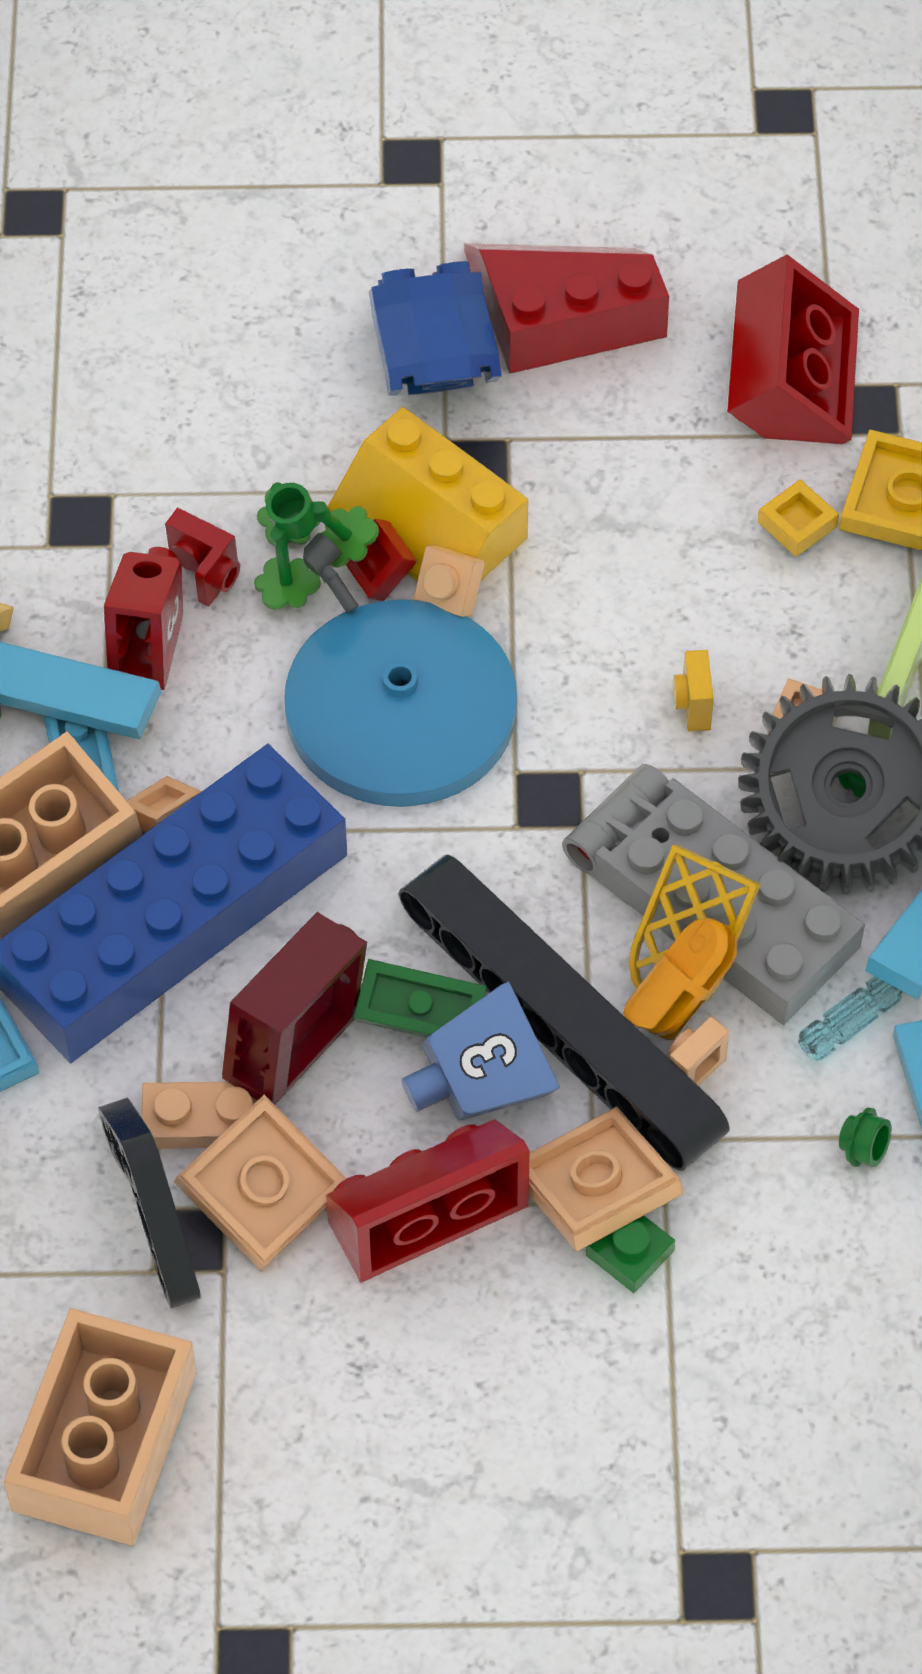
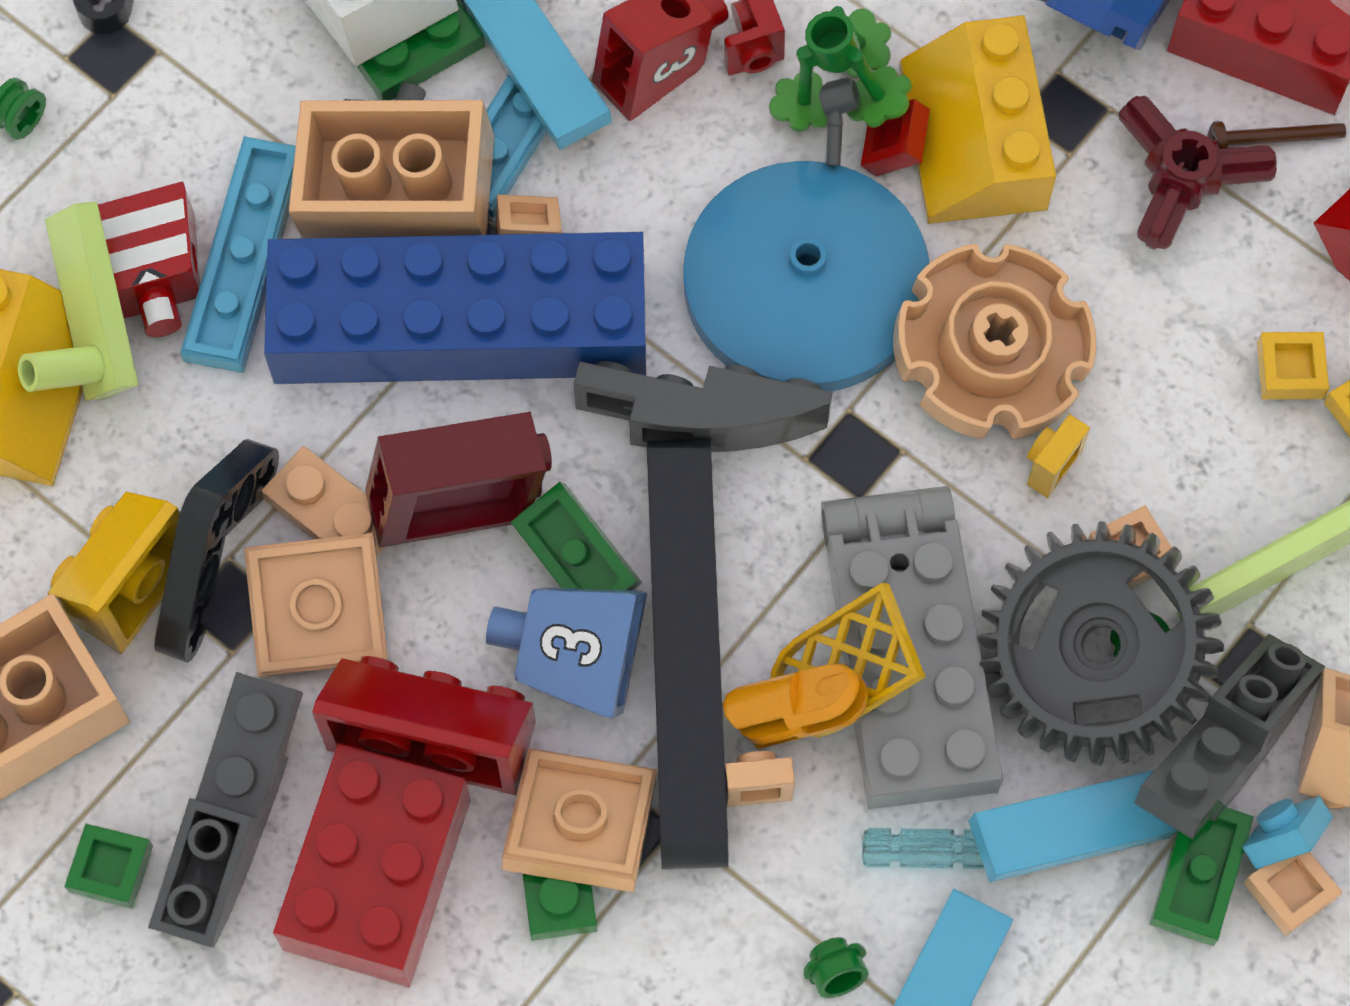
camera: 40 degrees right, 10 degrees up
(89, 1252) = (119, 570): none -> yellow slope
(282, 1478) = (108, 866): none -> green plate
(335, 1367) = (229, 811): none -> dark grey slope
(433, 824) = (731, 409): none -> dark grey slope
(449, 580) = (935, 199): light nougat plate -> none
(481, 1321) = (373, 865): none -> red brick
(581, 645) = (1012, 380): none -> light nougat piece
(603, 438) = (1182, 190): none -> dark red bush
(606, 404) = (1274, 135): none -> reddish brown piece

